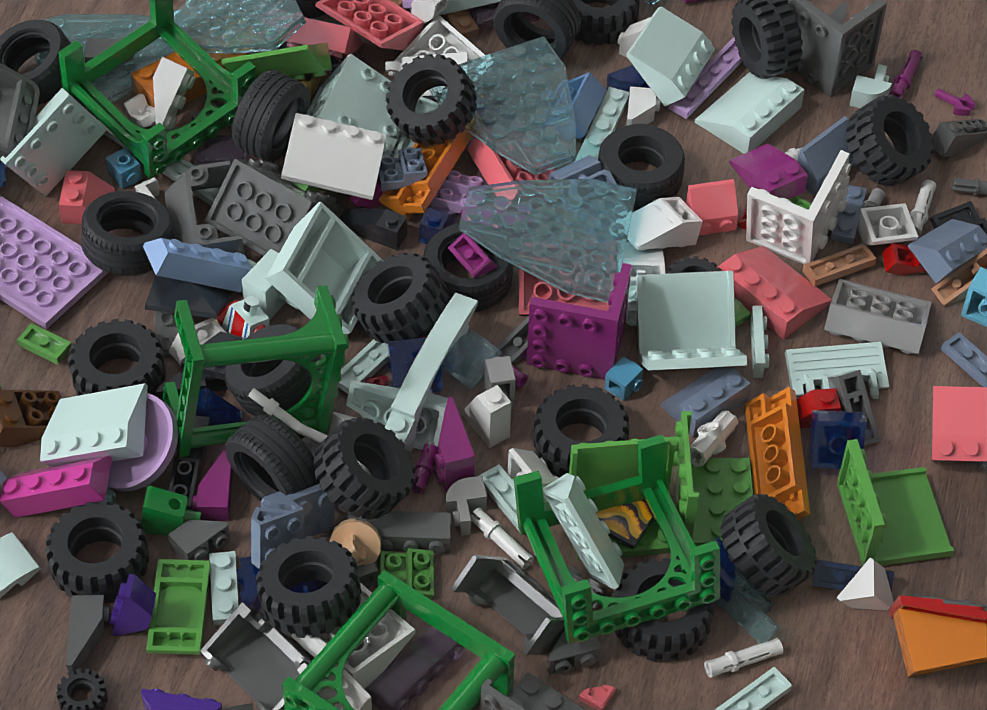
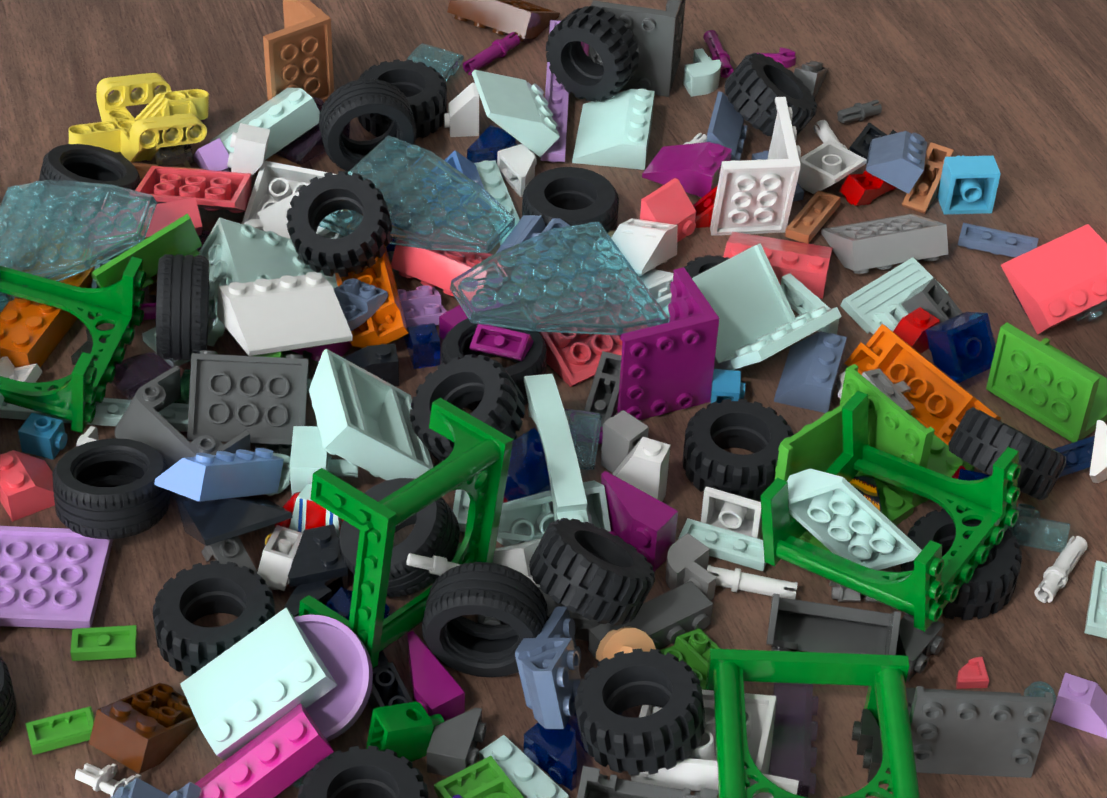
camera: 35 degrees left, 10 degrees down
(170, 86) = (45, 328): white slope -> none
(736, 448) = (893, 391): none -> light grey plate

